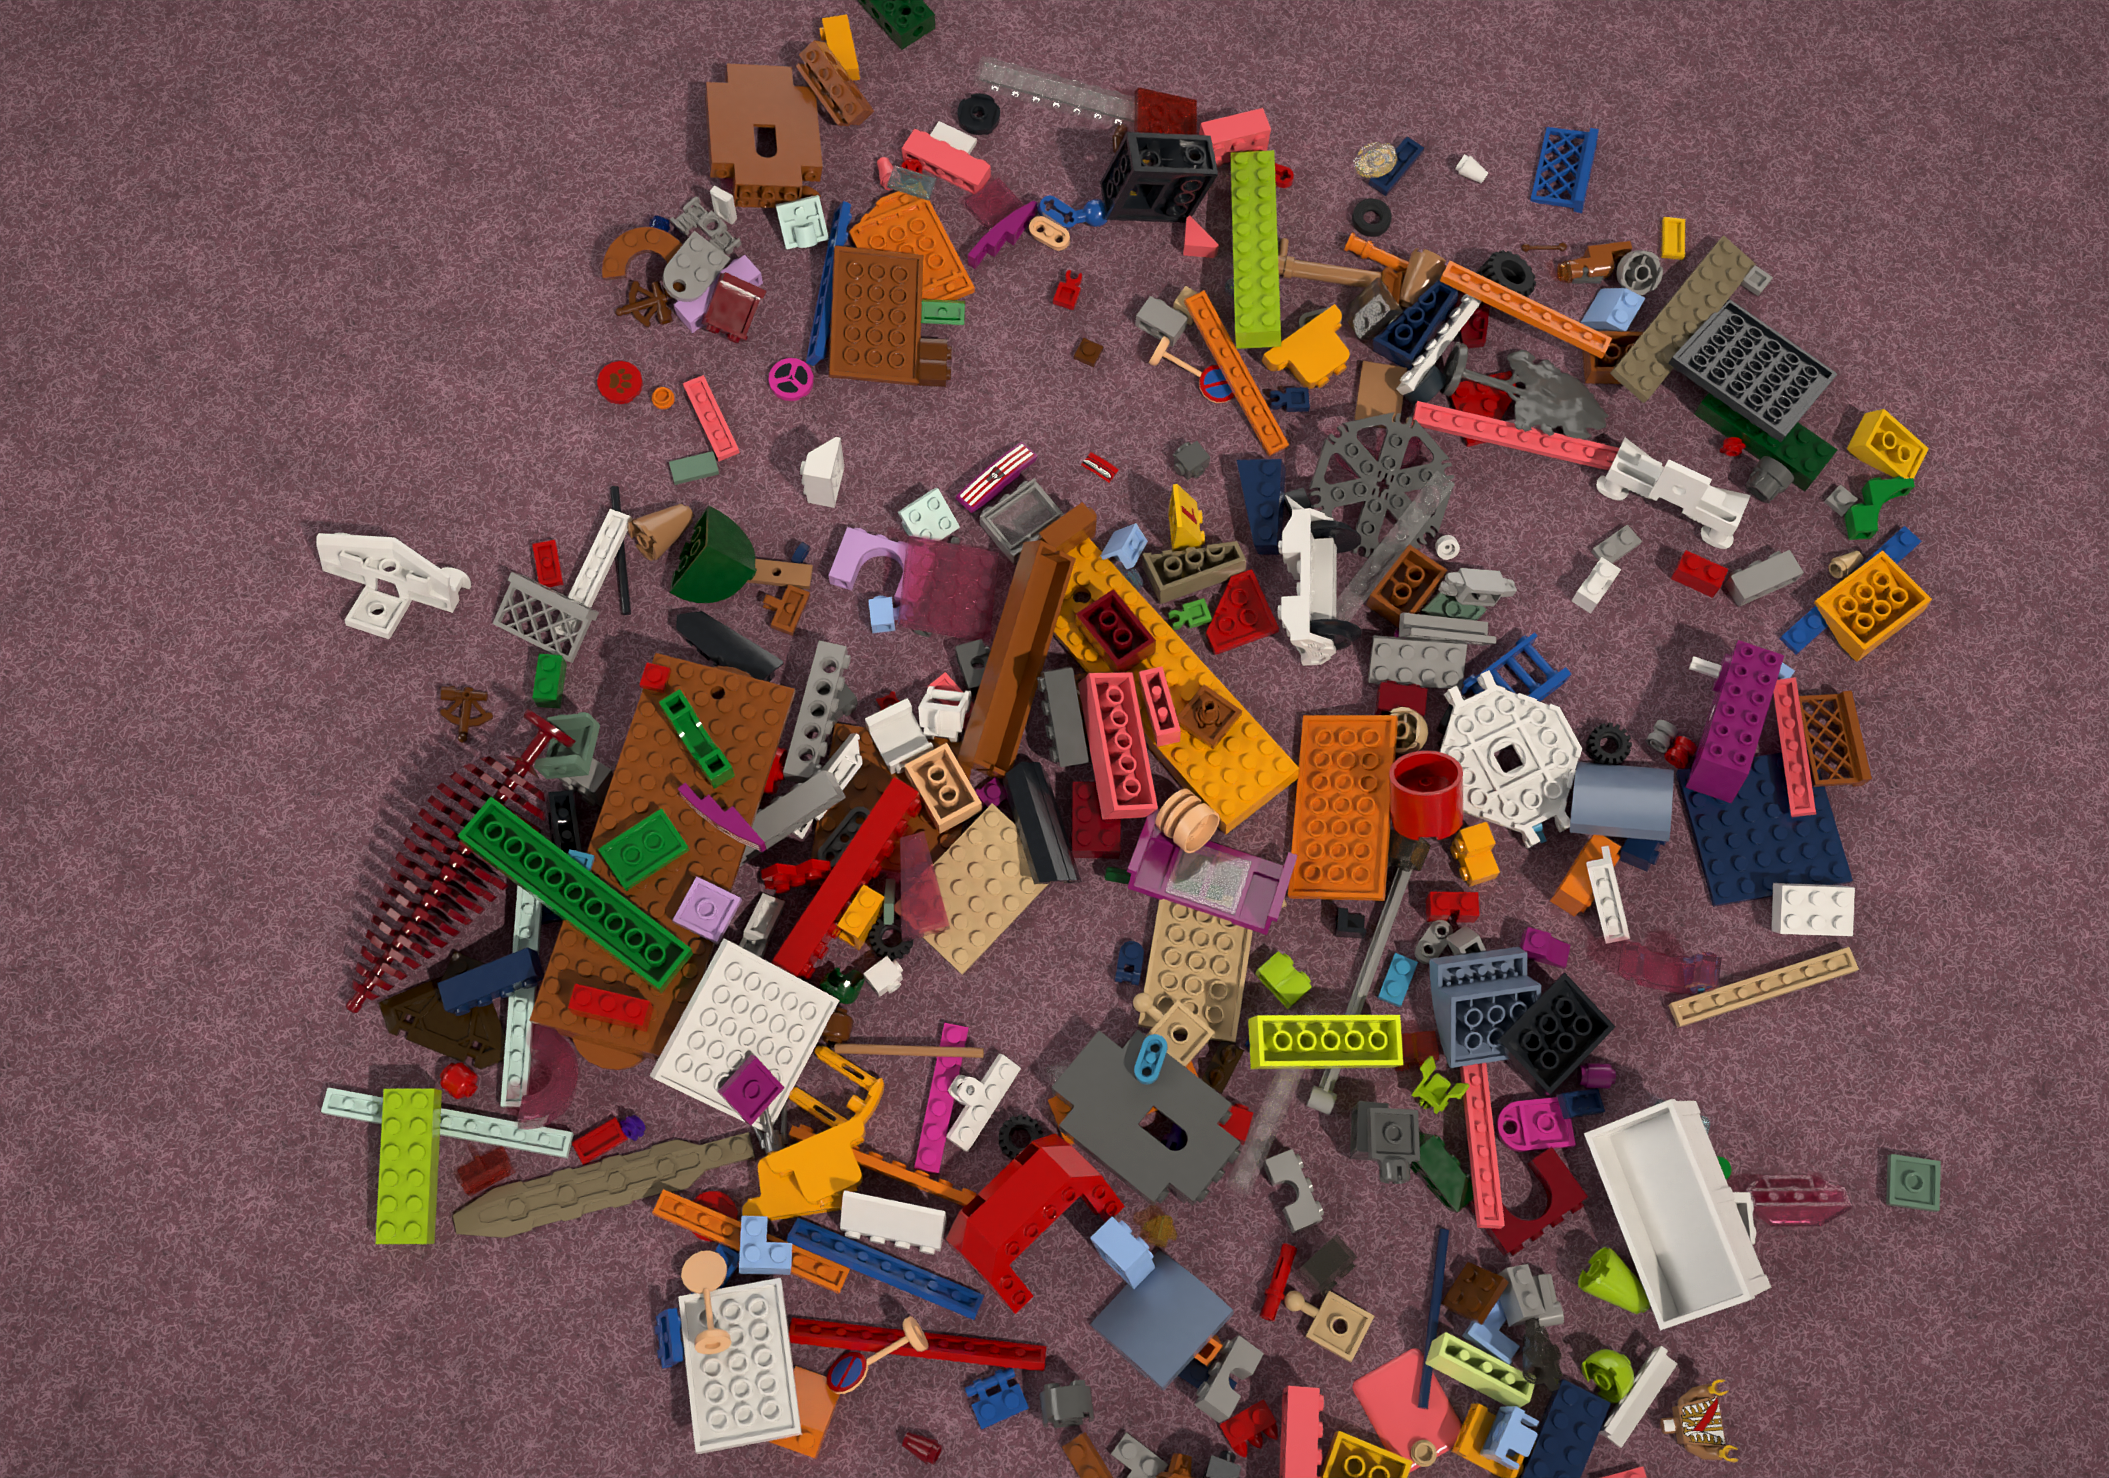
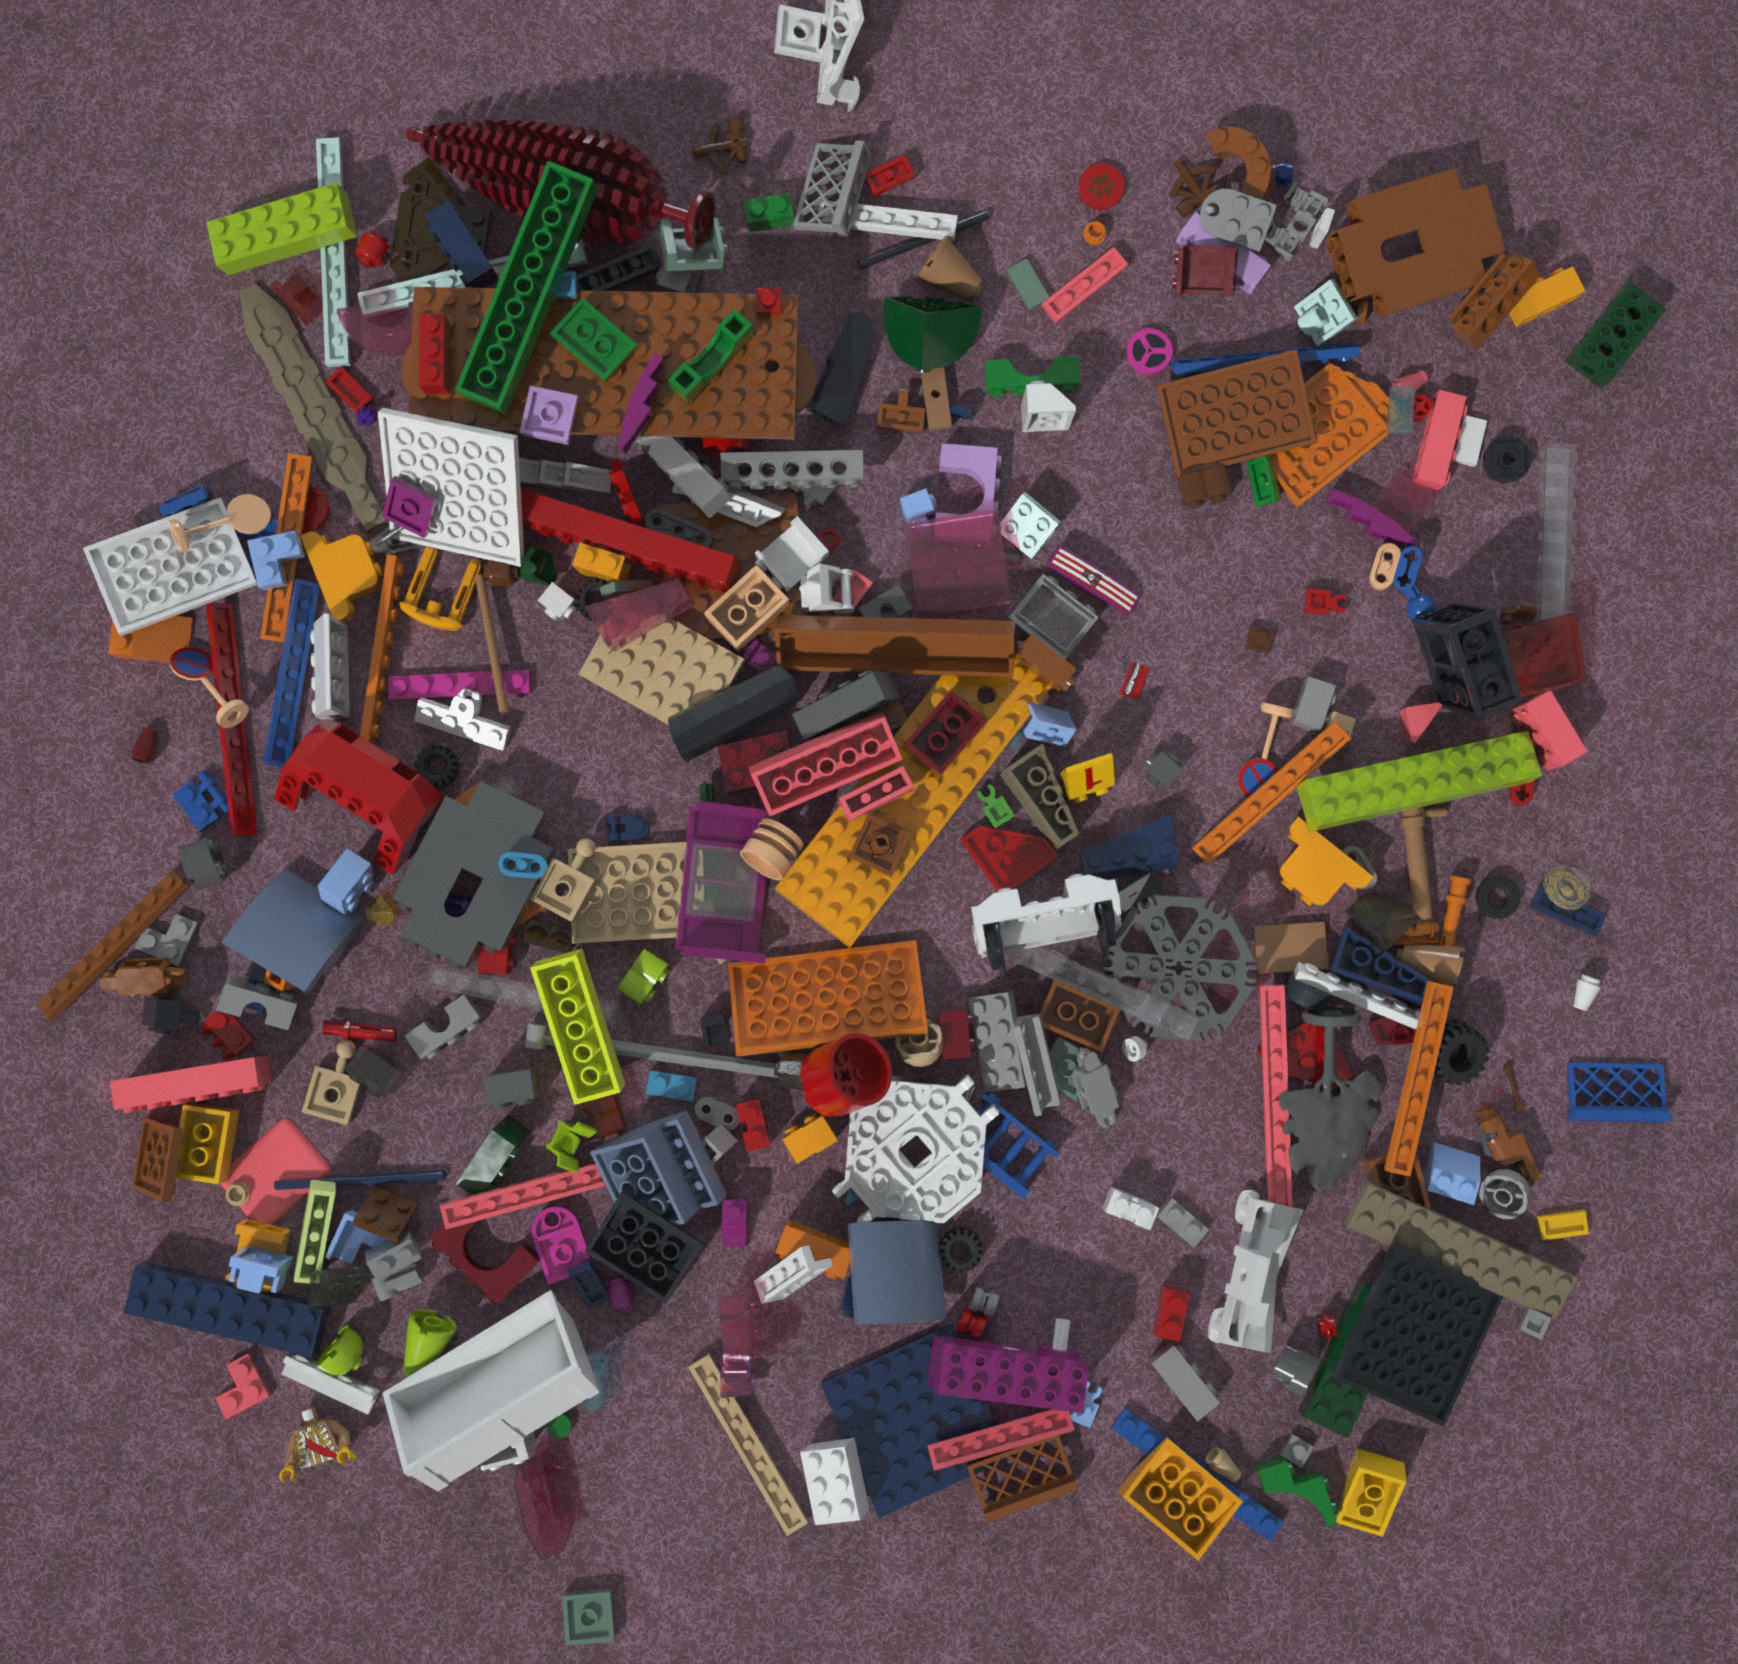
camera: 80 degrees right, 15 degrees up
(779, 508) = (1003, 378): none -> green arch
(823, 1162) = (363, 592): light orange brick -> none
(1294, 399) = (1261, 860): dark blue plate -> none
(1393, 1142) = (495, 1109): dark grey plate -> none

